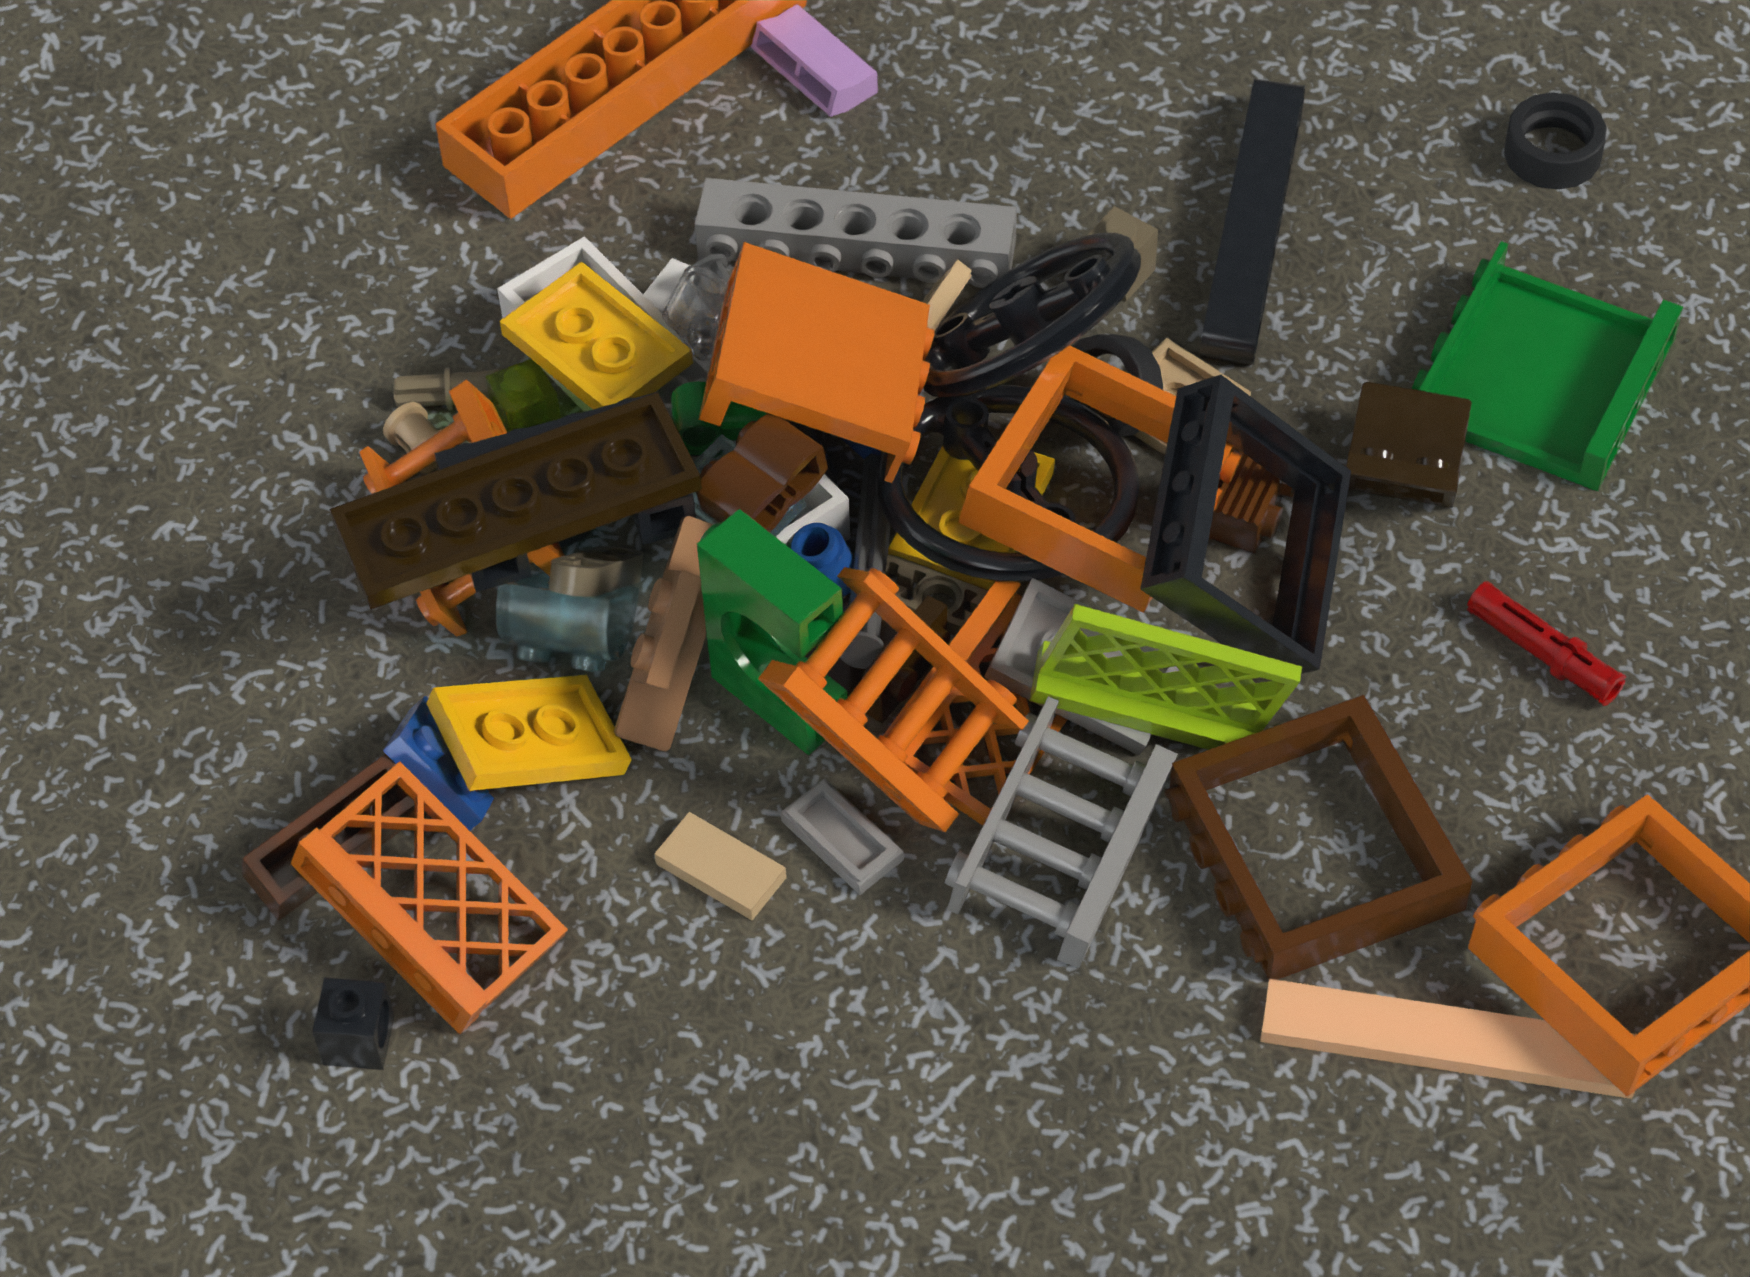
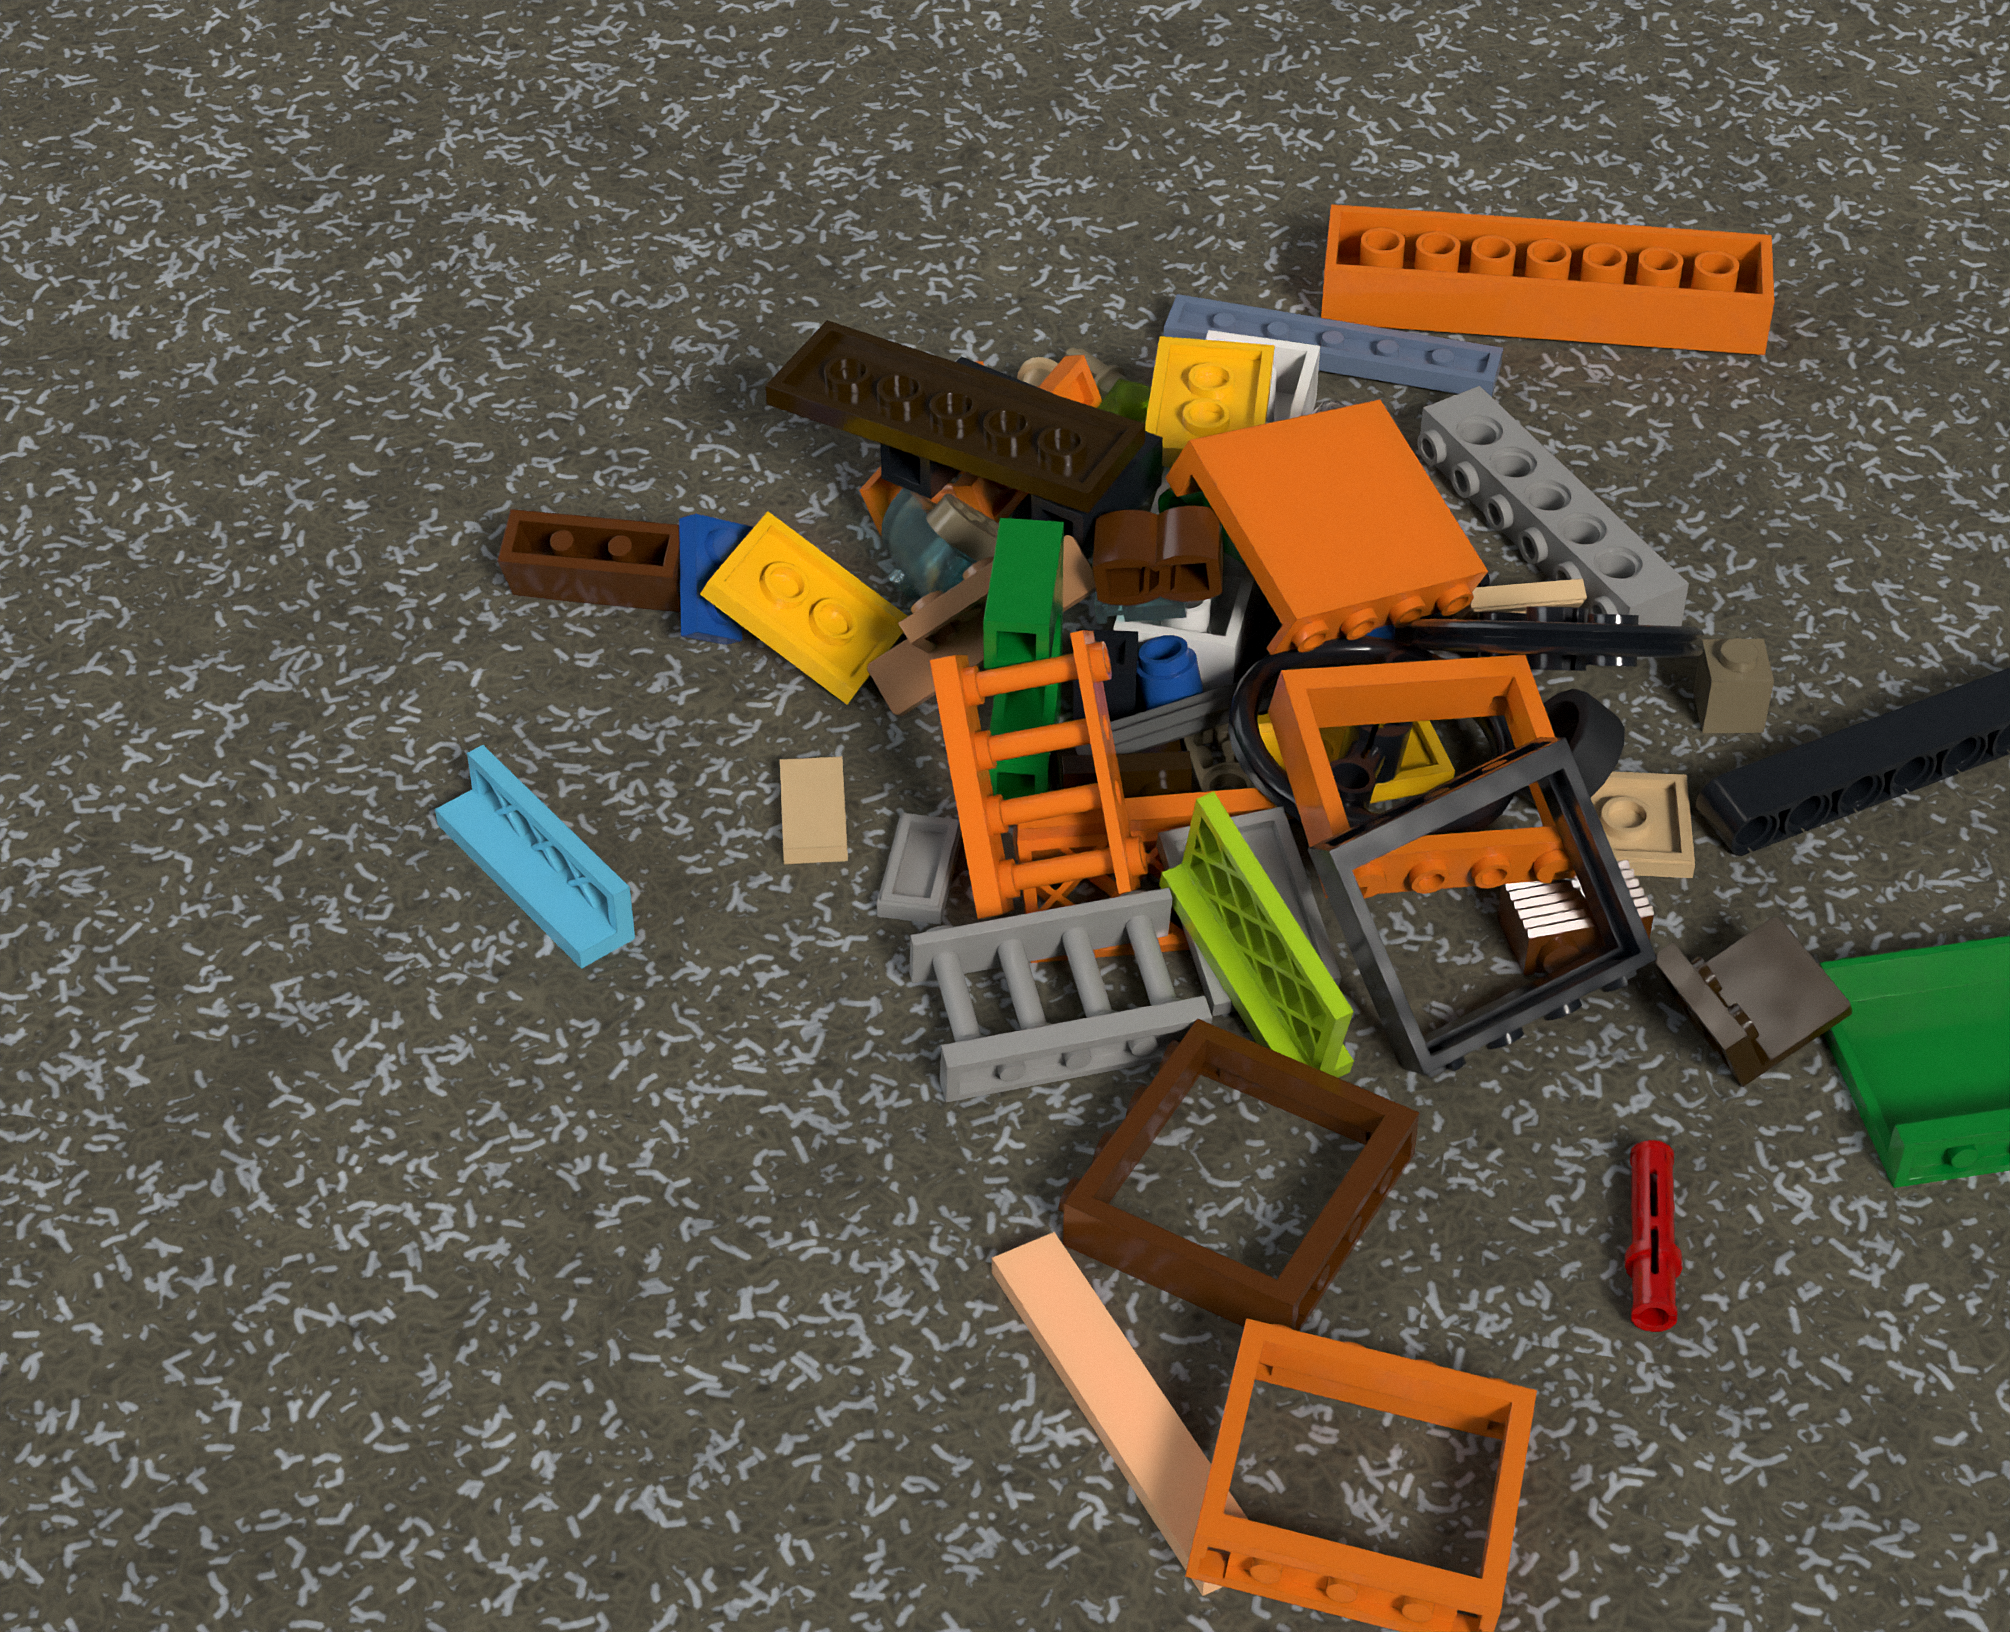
camera: 50 degrees right, 10 degrees down
(353, 1023) = (442, 676): black brick -> none
(392, 930) = (537, 646): orange fence -> none
(547, 229) = (1347, 346): none -> sand blue plate
(615, 1082) = (525, 849): none -> medium azure fence
(814, 61) = (1705, 391): lavender piece -> none

